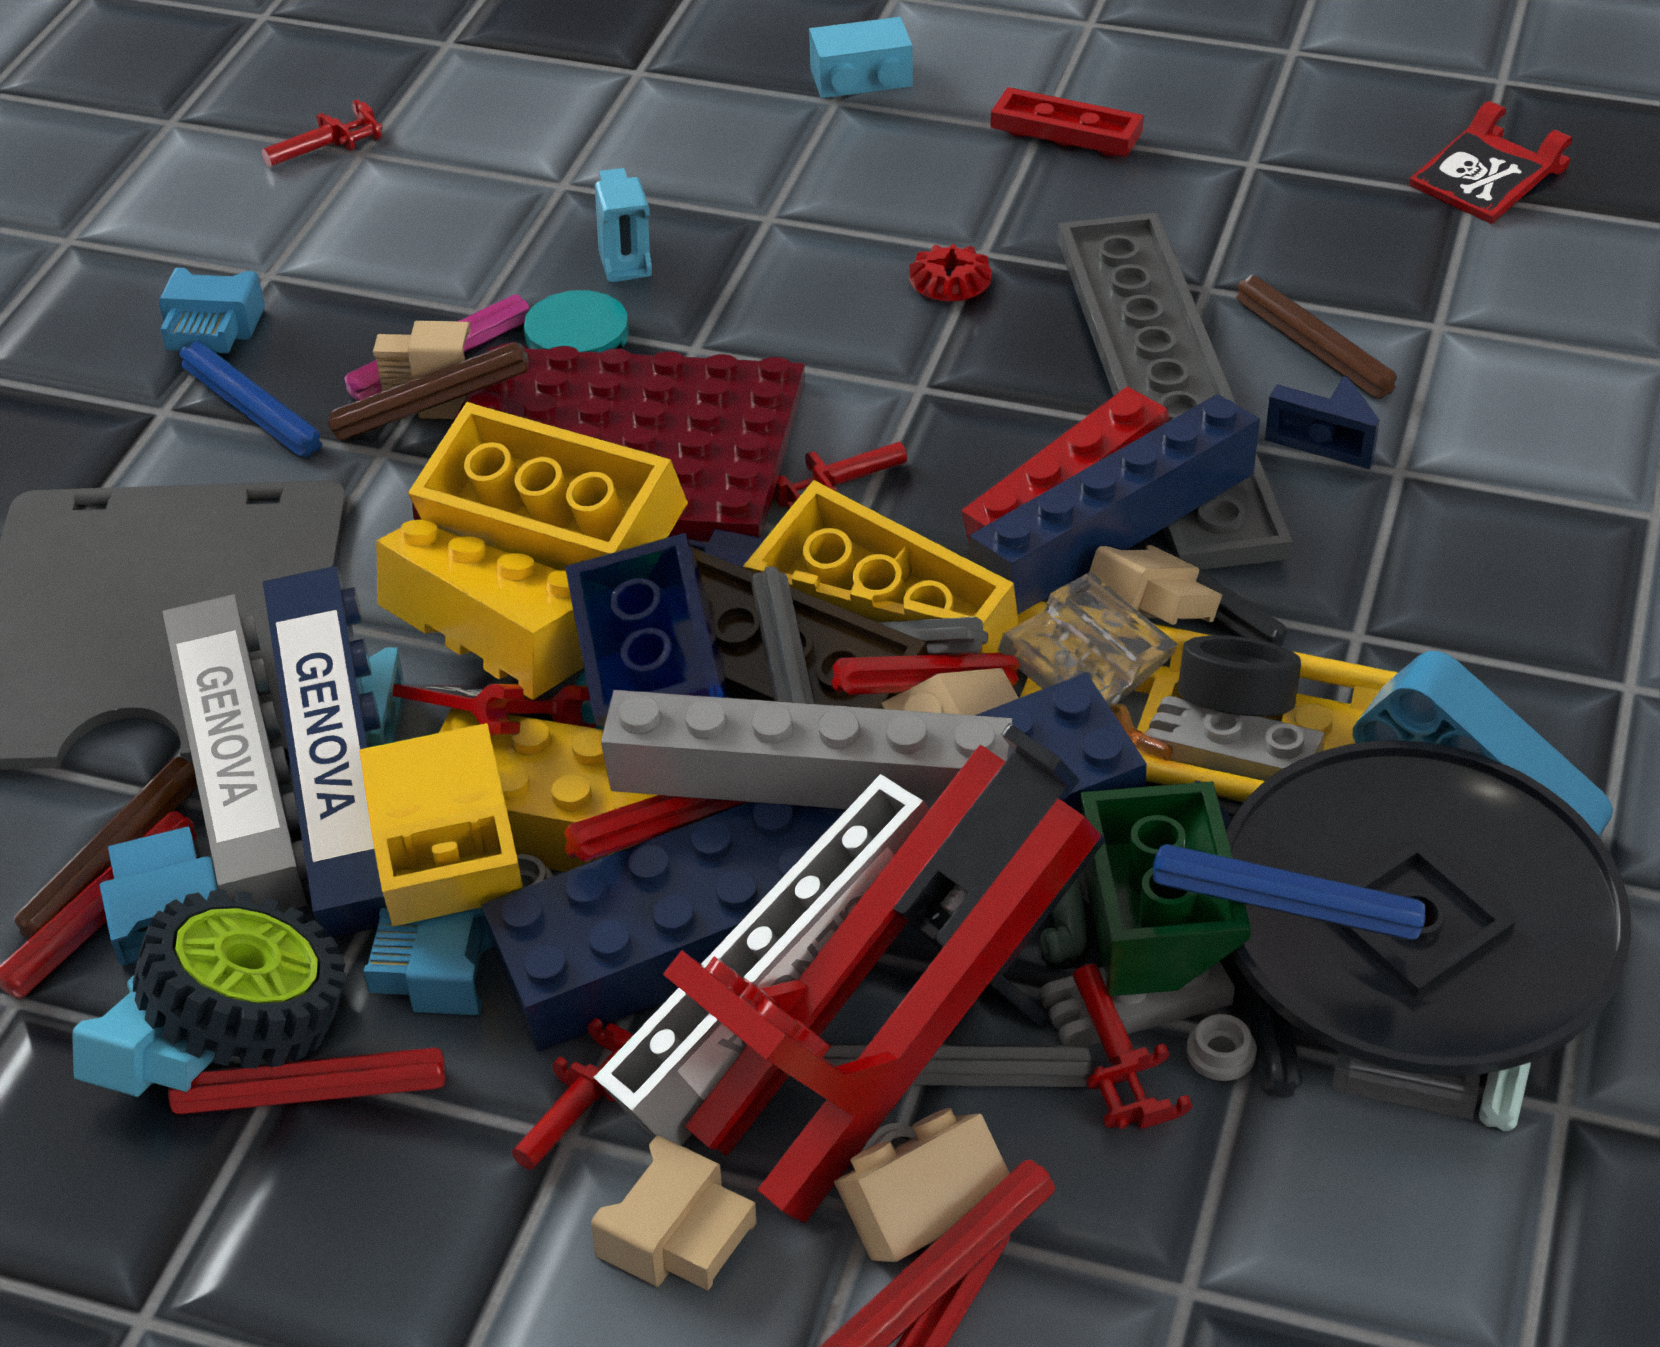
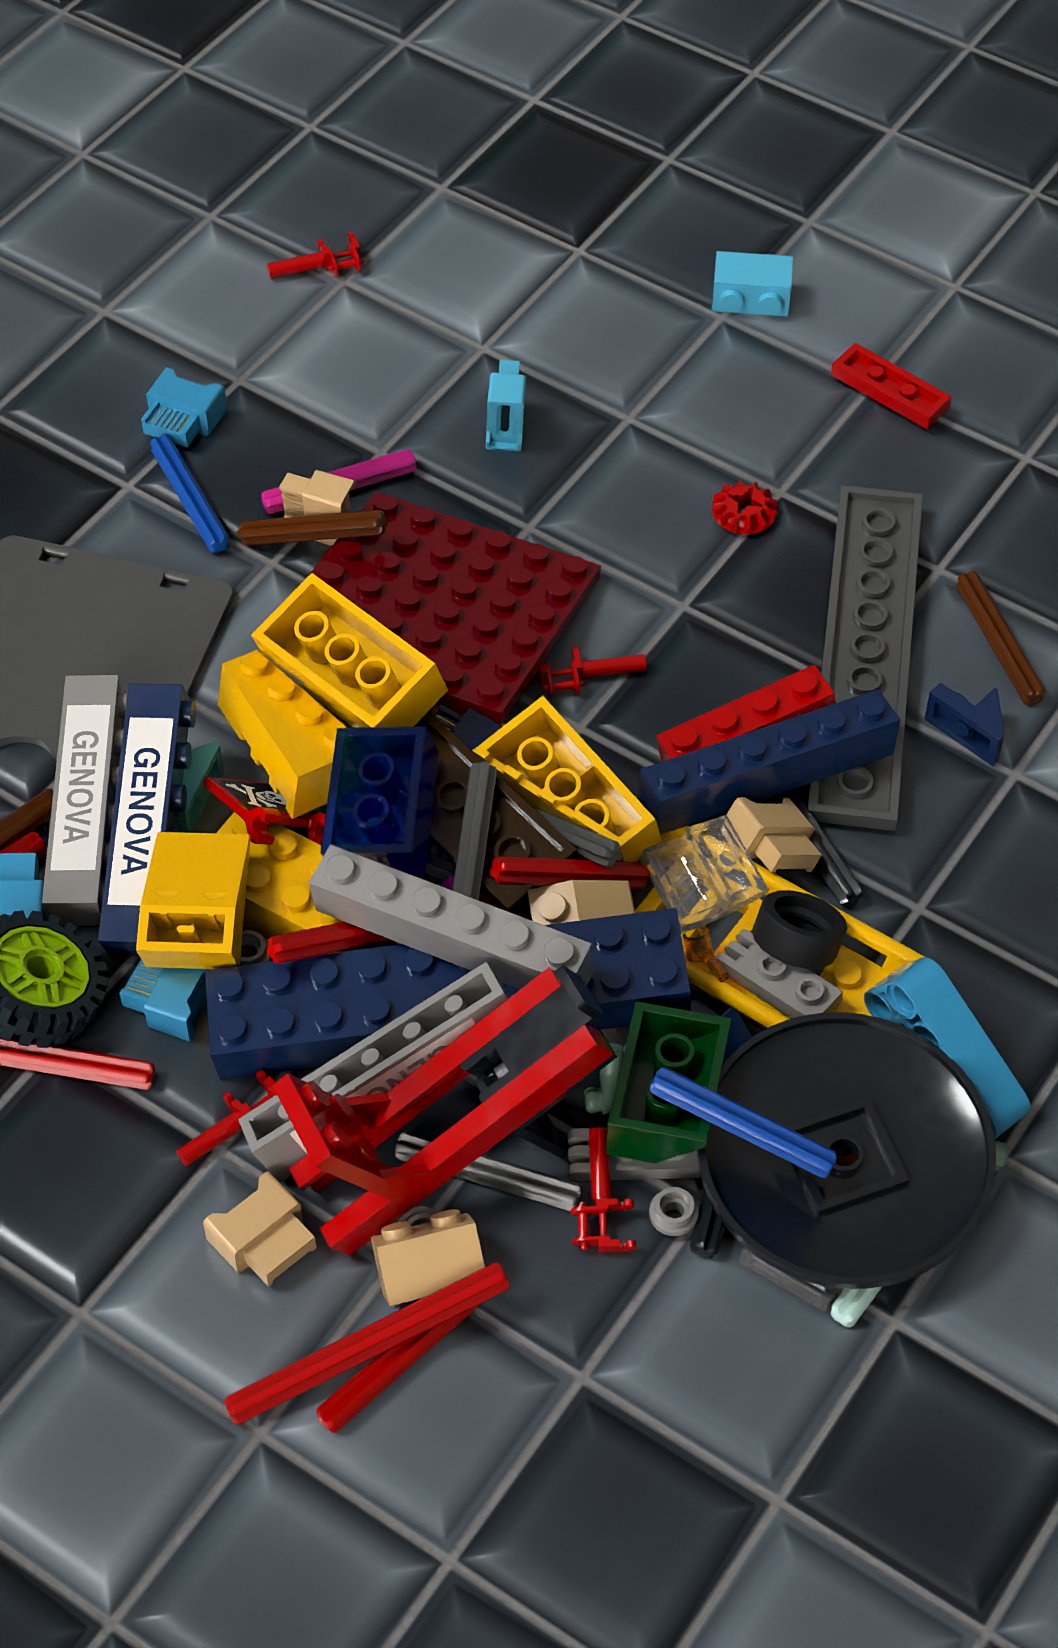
camera: 15 degrees right, 10 degrees up
(577, 320) = (447, 485): teal tile -> none

